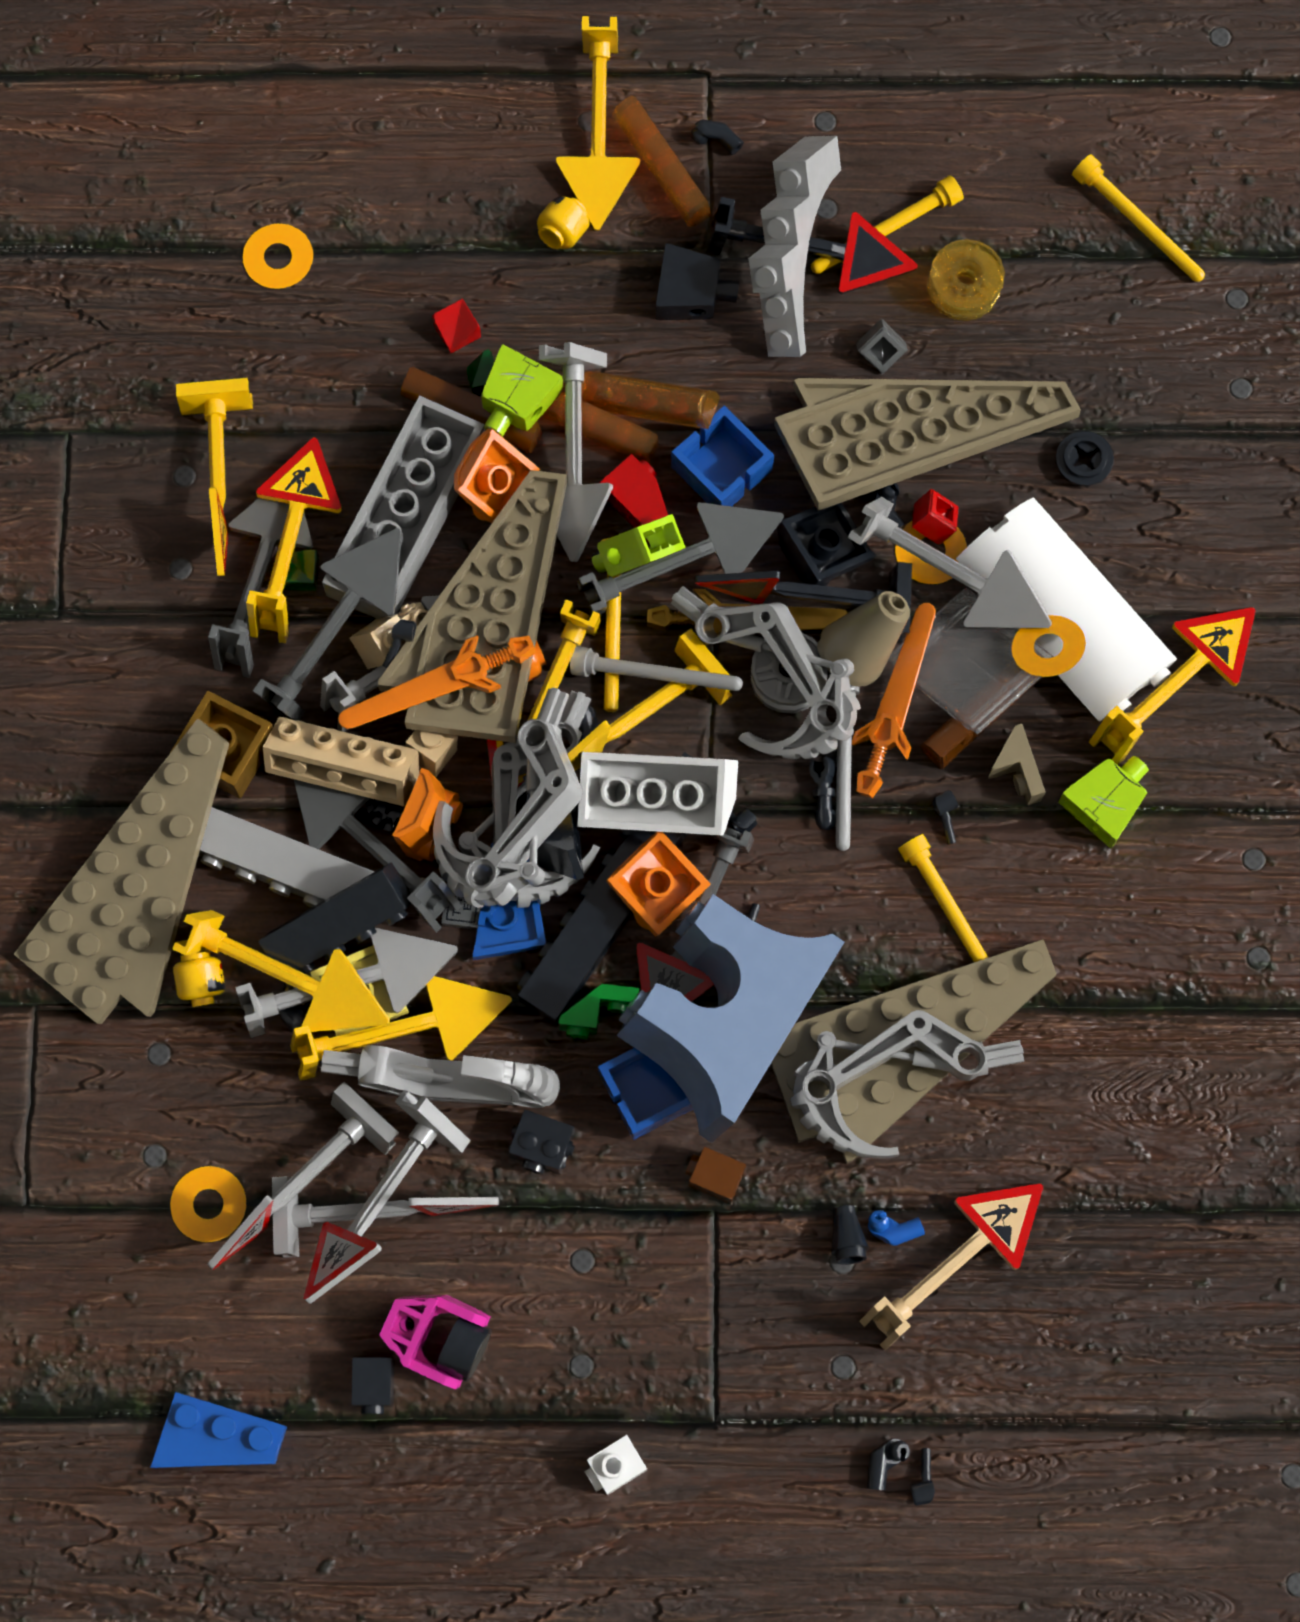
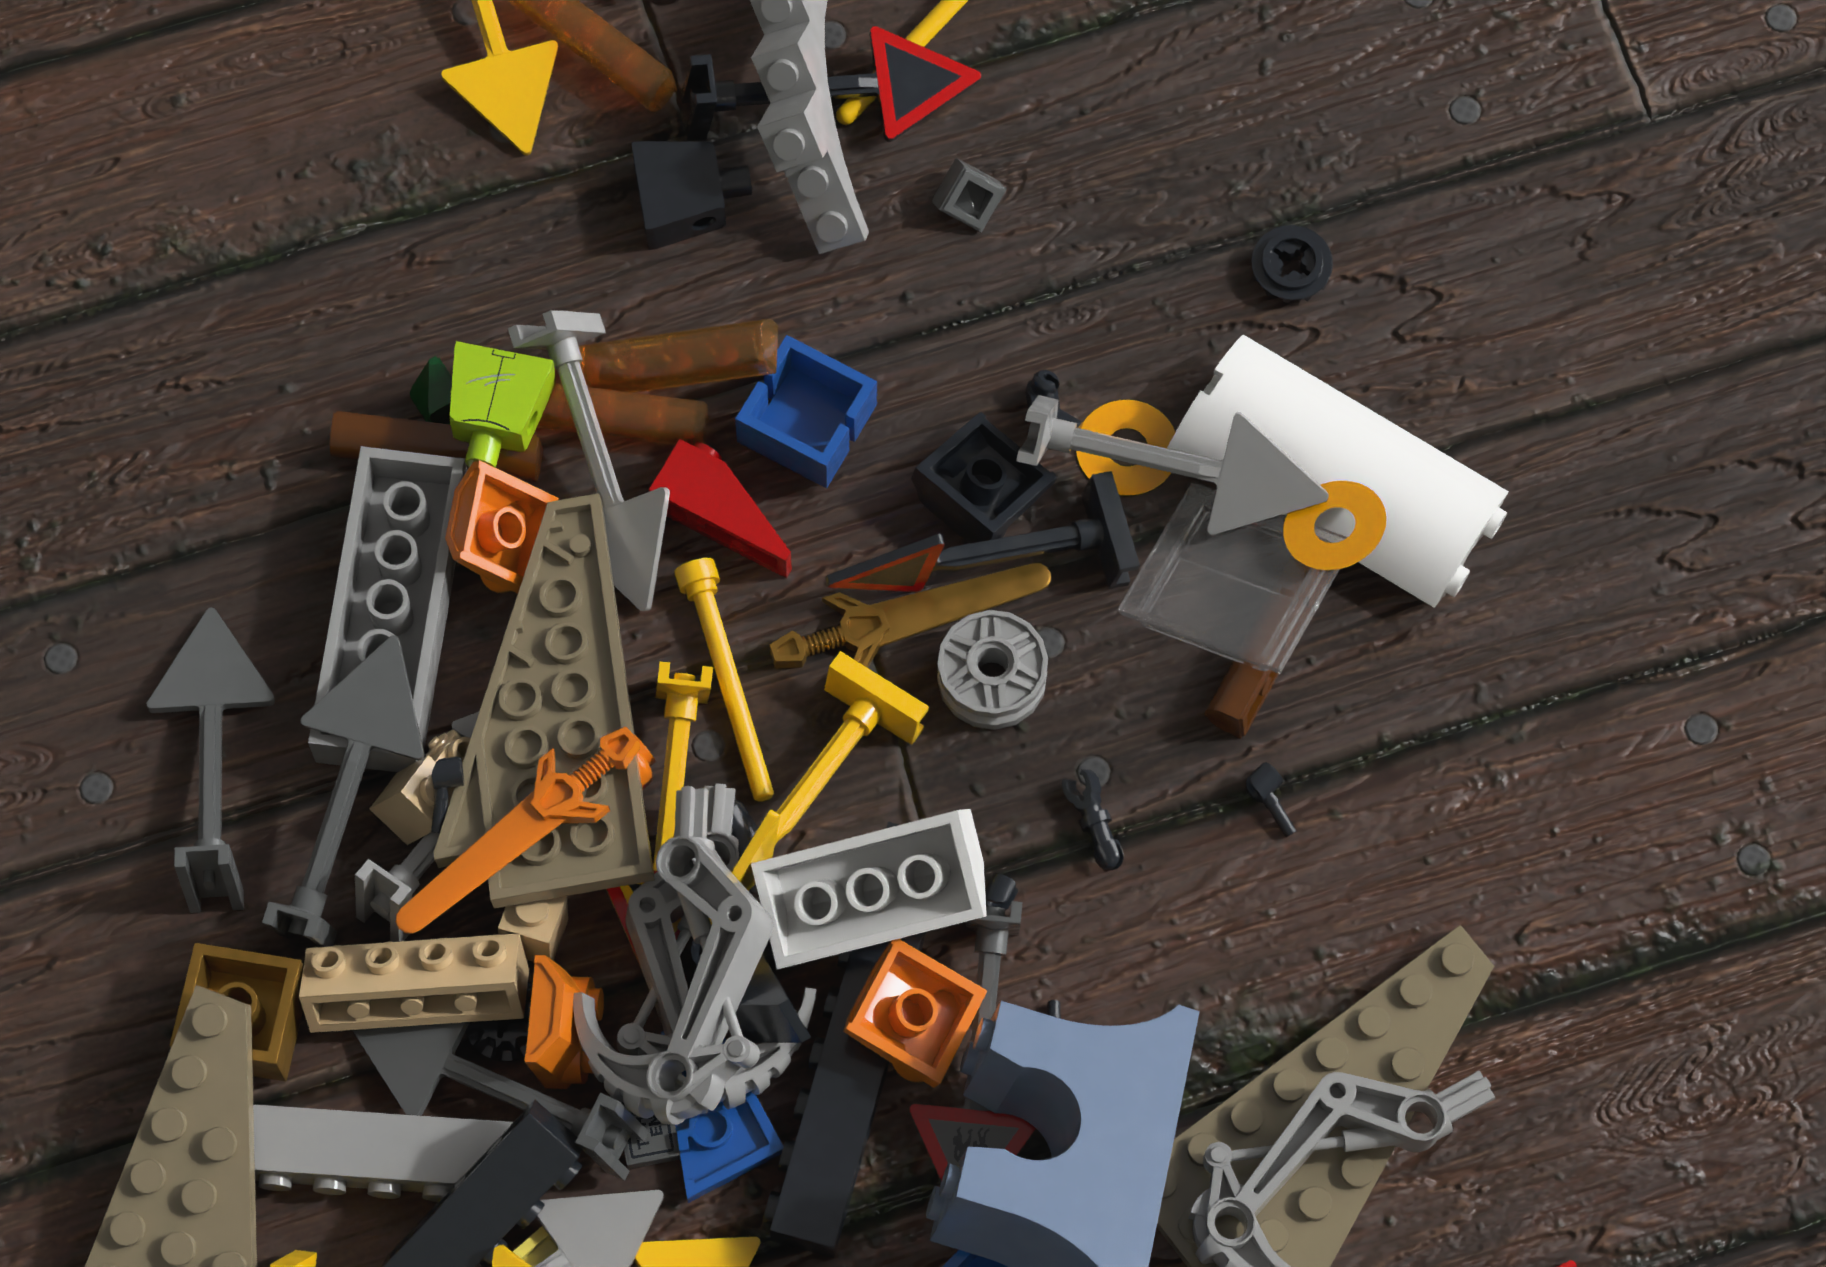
camera: 20 degrees left, 5 degrees down
(214, 400) = (71, 541): yellow piece -> none
(278, 278) = (90, 350): light orange piece -> none
(302, 484) = (232, 618): yellow piece -> none
(303, 571) = (267, 739): dark green slope -> none
(456, 326) = (377, 338): red slope -> none
(562, 222) = (479, 156): yellow head -> none
(584, 1016) = (871, 1231): green slope -> none
(587, 662) = (711, 741): light grey piece -> none
(631, 549) = (732, 561): lime torso -> none
(733, 536) = (857, 506): dark grey piece -> none
(789, 645) = (983, 629): light grey piece -> none
(843, 789) = (1077, 672): light grey piece -> none
(866, 636) = (1083, 590): dark tan cone -> none
(886, 430) = (1008, 309): dark tan wing -> none
(887, 727) = (1151, 683): orange sword -> none
(918, 854) = (1251, 863): yellow piece -> none
(935, 517) = (1119, 400): red slope -> none
(965, 259) = (1058, 46): clear yellow wheel -> none
(1018, 757) = (1342, 688): dark tan slope -> none
(1107, 798) = (1480, 707): lime torso -> none
(1217, 640) = (1553, 452): yellow piece -> none

